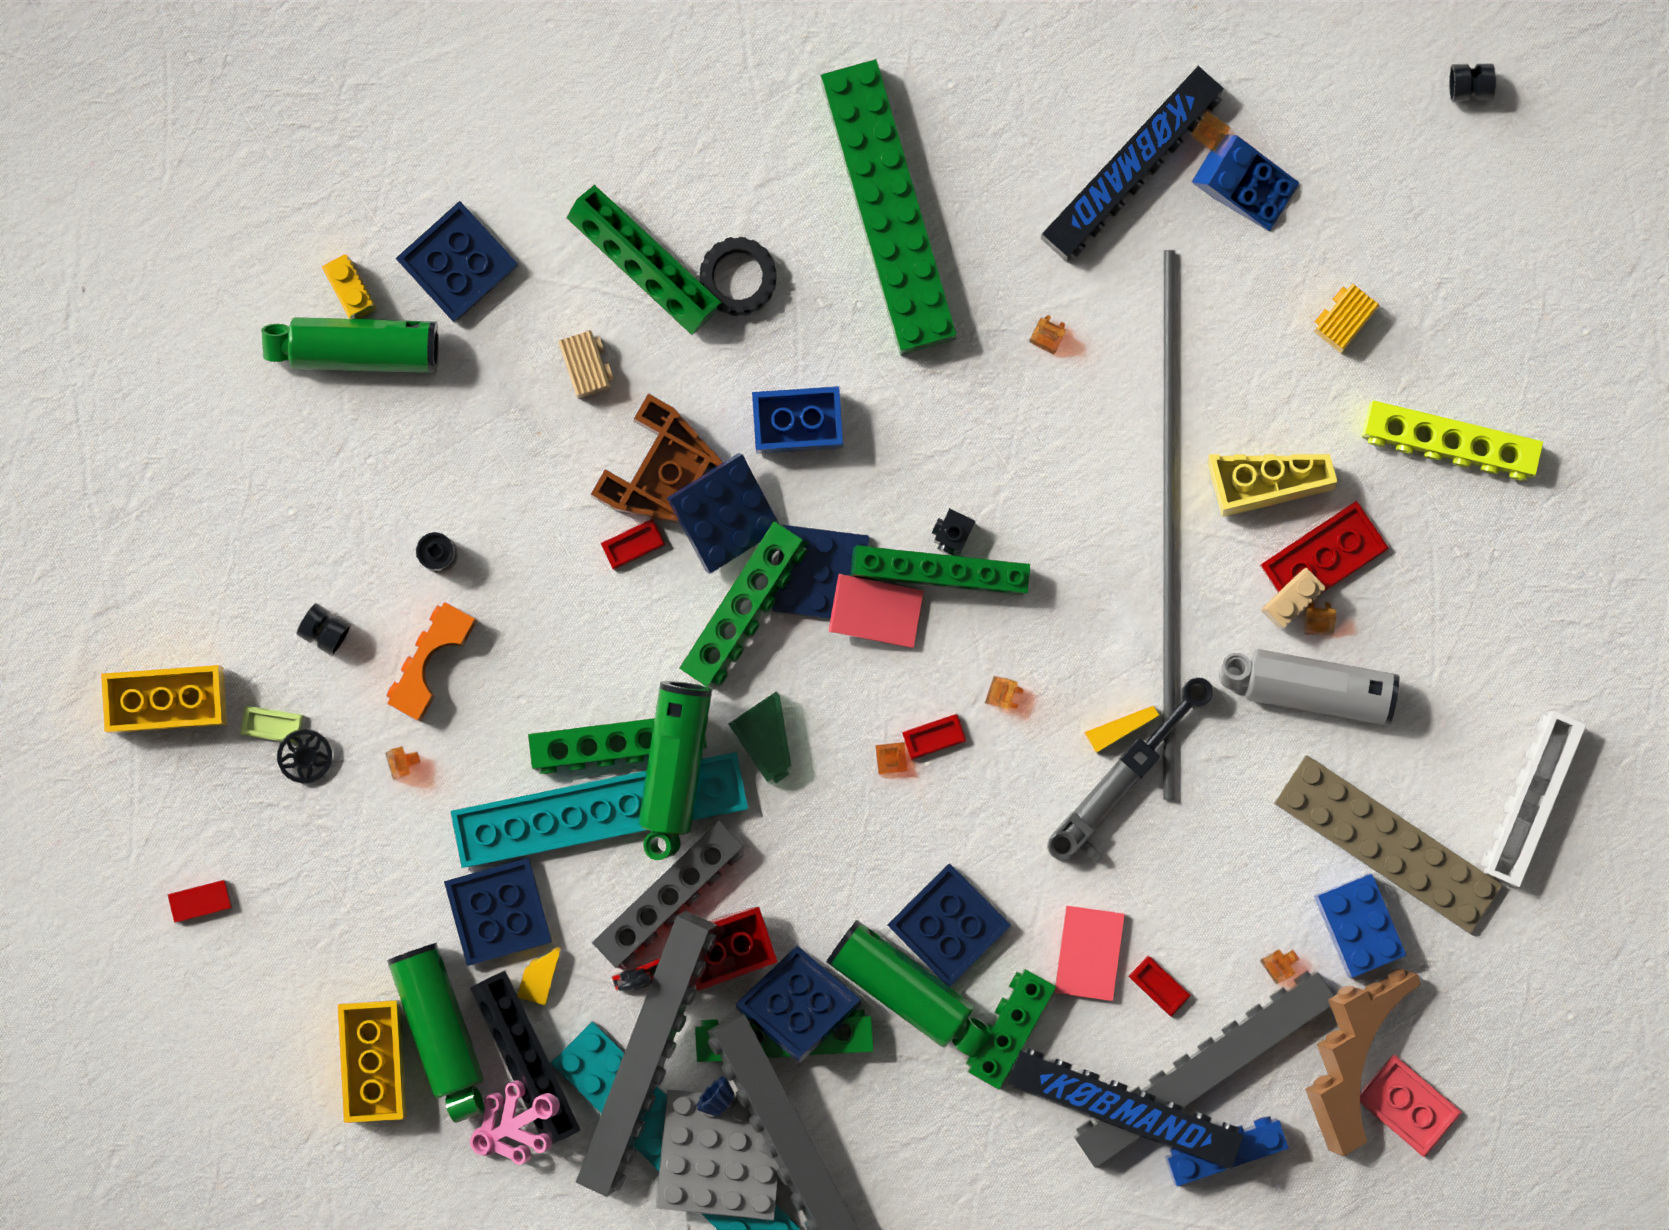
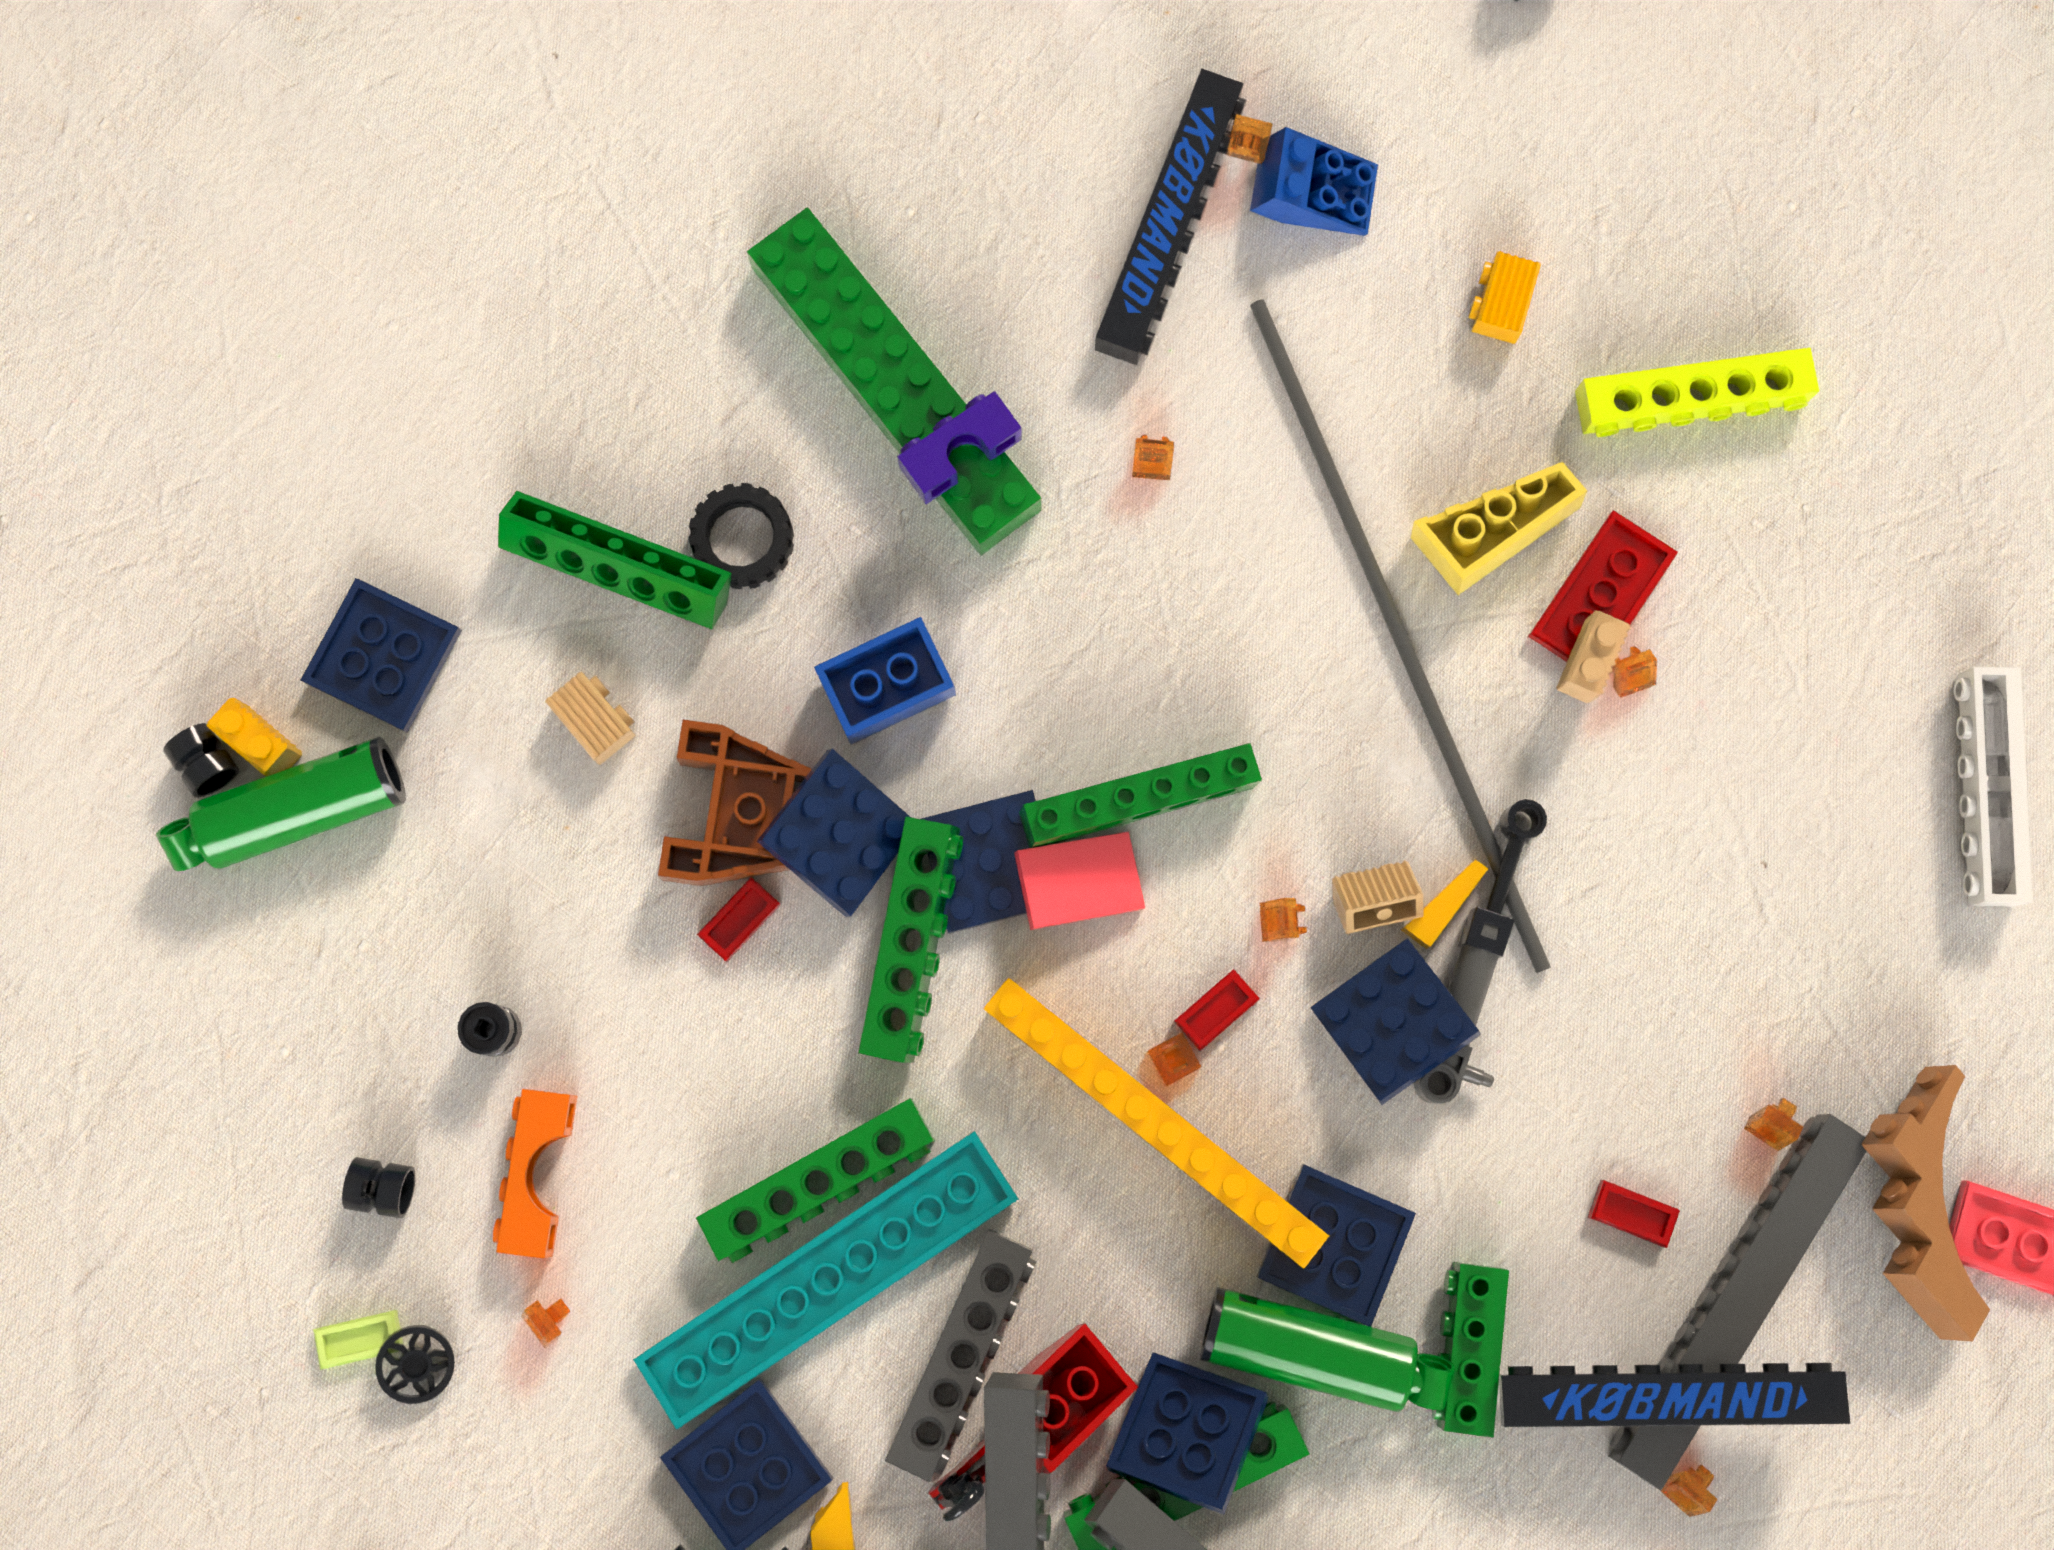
camera: 25 degrees left, 5 degrees down
(164, 699) = (199, 1365): yellow brick -> none
(307, 287) = (199, 757): none -> black wheel
(674, 765) = (901, 1183): green piece -> none
(765, 737) = (1003, 1098): clear green slope -> none
(859, 794) = (1156, 1123): none -> yellow brick
(936, 269) = (983, 424): none -> dark purple arch
(952, 532) = (1135, 743): black brick -> none
(1050, 792) = (1395, 1021): none -> dark blue plate
(1074, 704) = (1377, 897): none -> tan brick
(1089, 953) = (1528, 1207): coral tile -> none
(1115, 1178) = (1690, 1491): none -> clear orange tile
(1258, 1141) = (1852, 1351): blue brick -> none
(1314, 685) = (1666, 754): light grey piece -> none
(1360, 925) = (1853, 1033): blue brick -> none
(1388, 844) = (1838, 916): dark tan plate -> none

